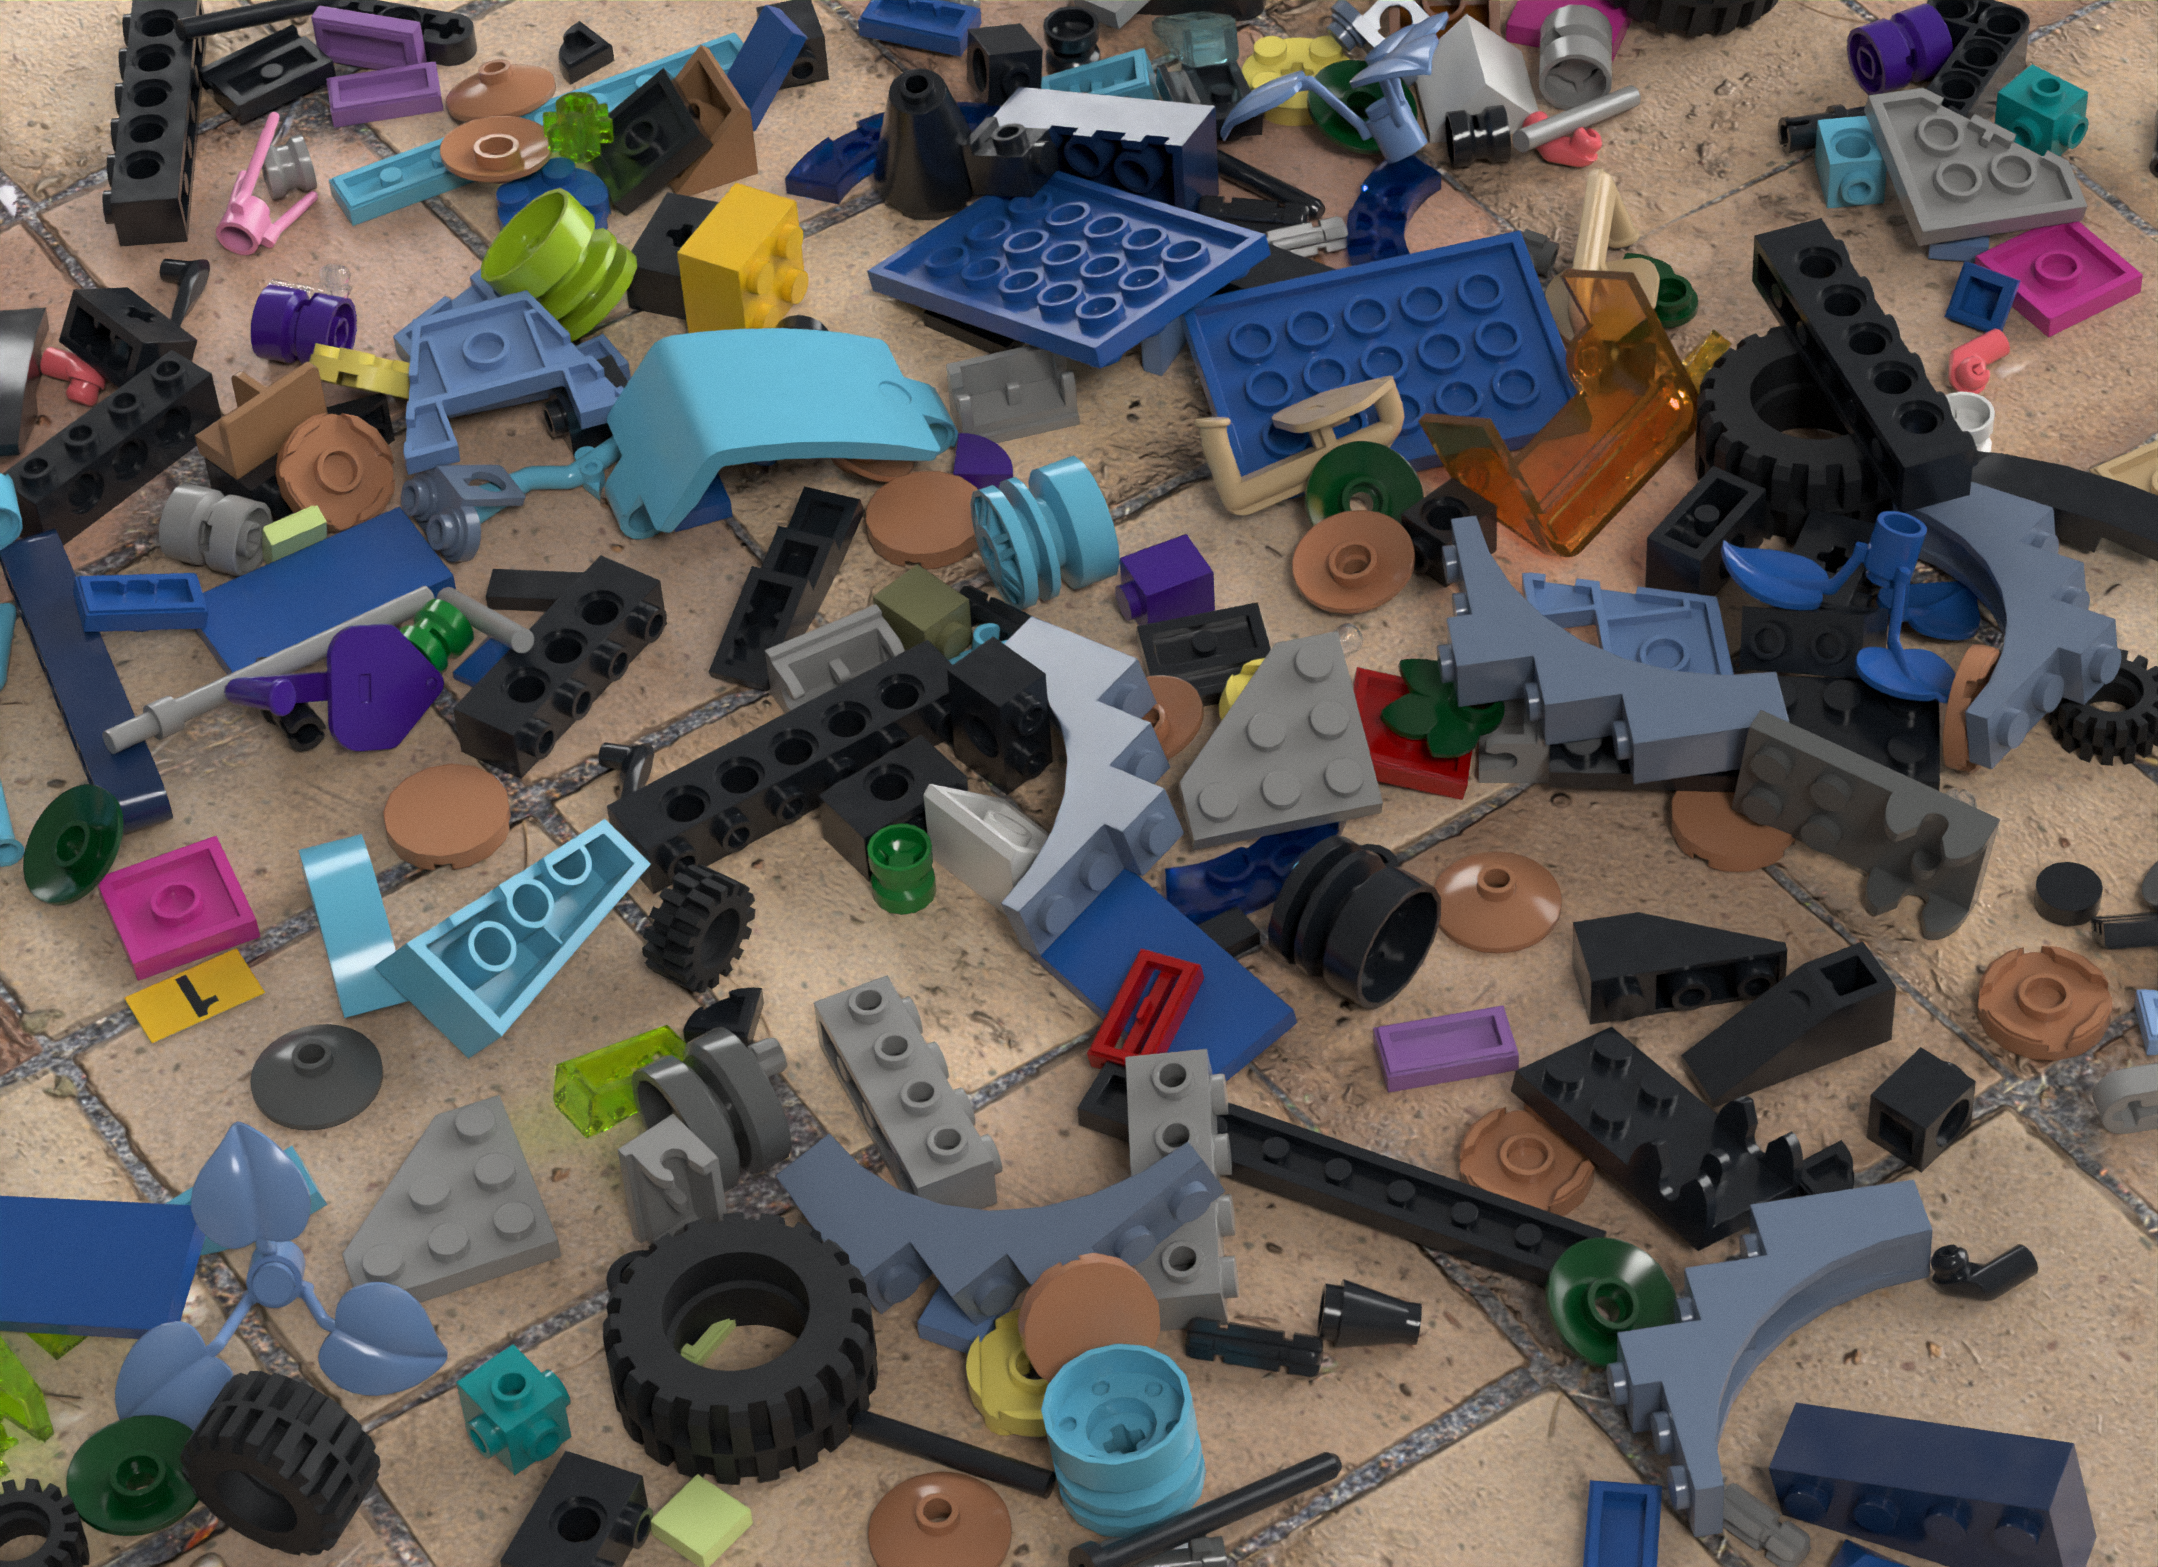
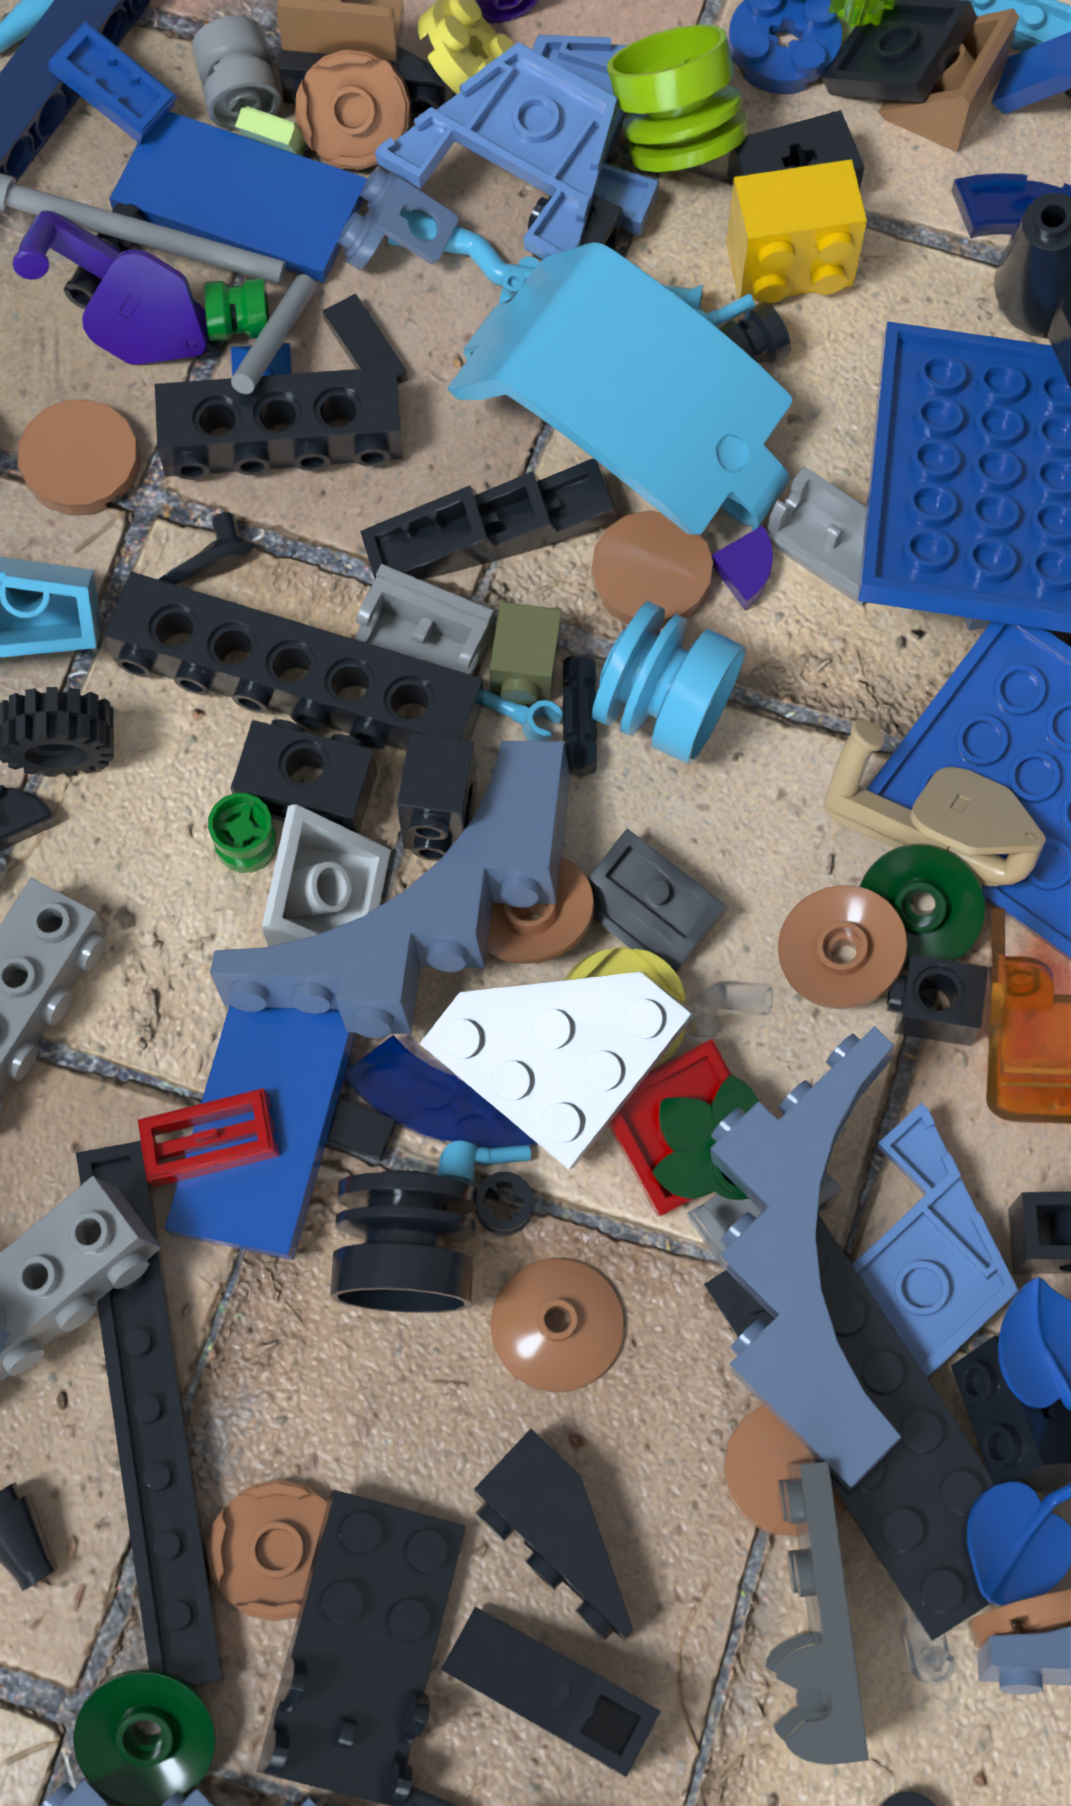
camera: 50 degrees right, 25 degrees up
(1165, 582) = (702, 812): dark purple brick -> none
(1445, 1048) = (358, 1397): medium lavender tile -> none

